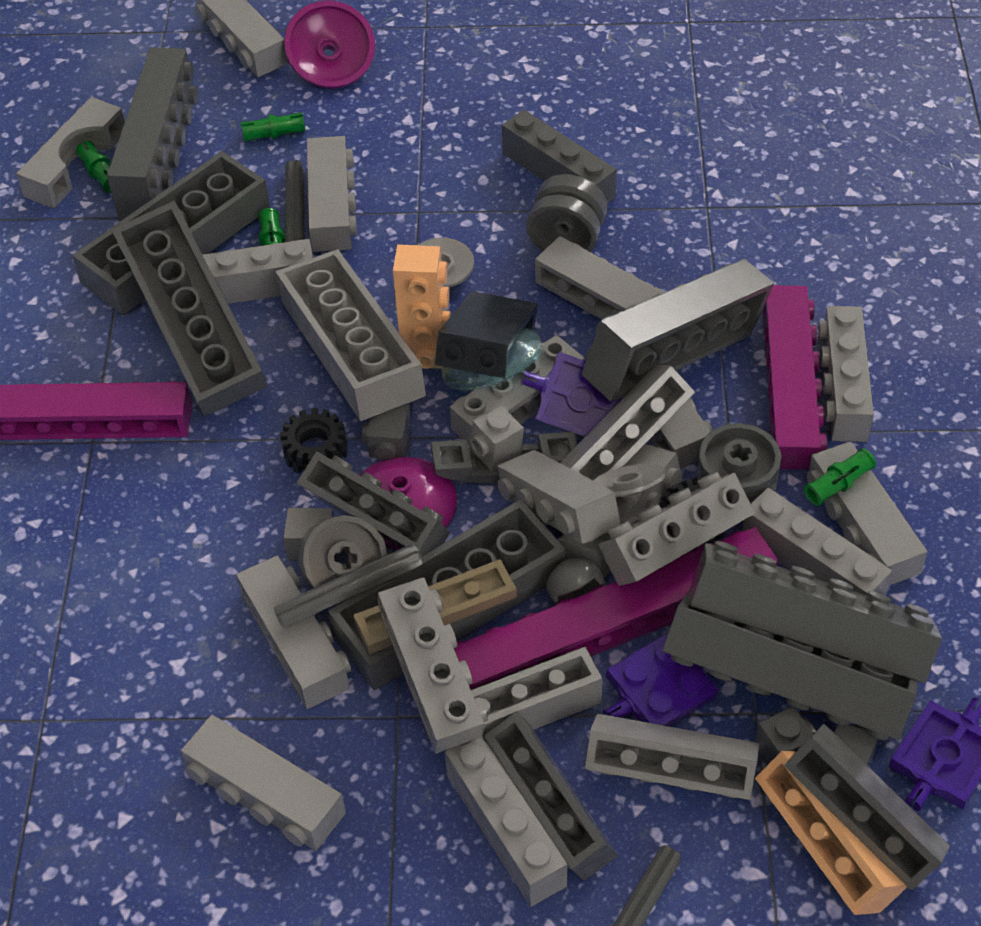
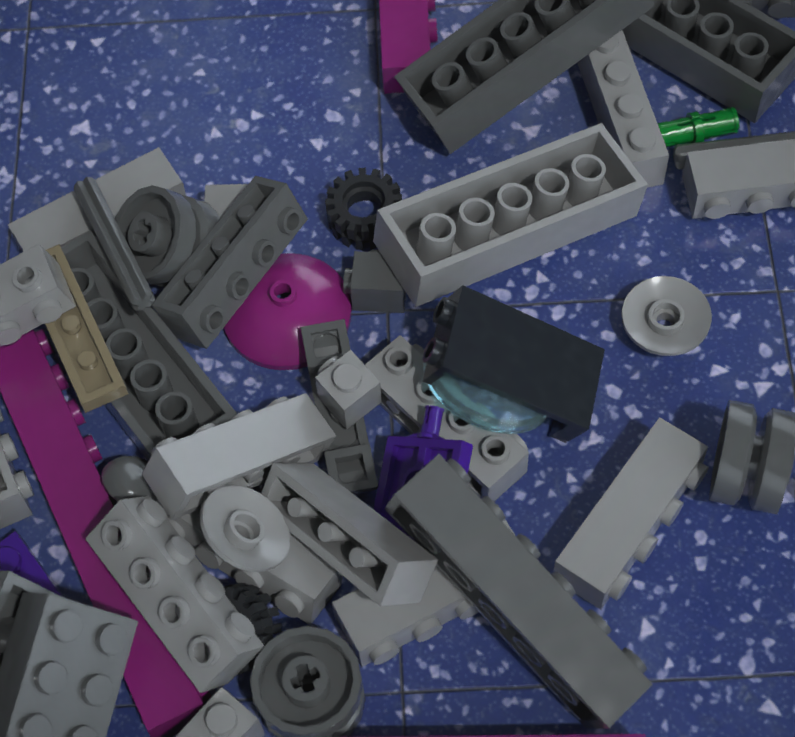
camera: 90 degrees right, 10 degrees up
(421, 298) = (524, 256): light nougat brick -> none

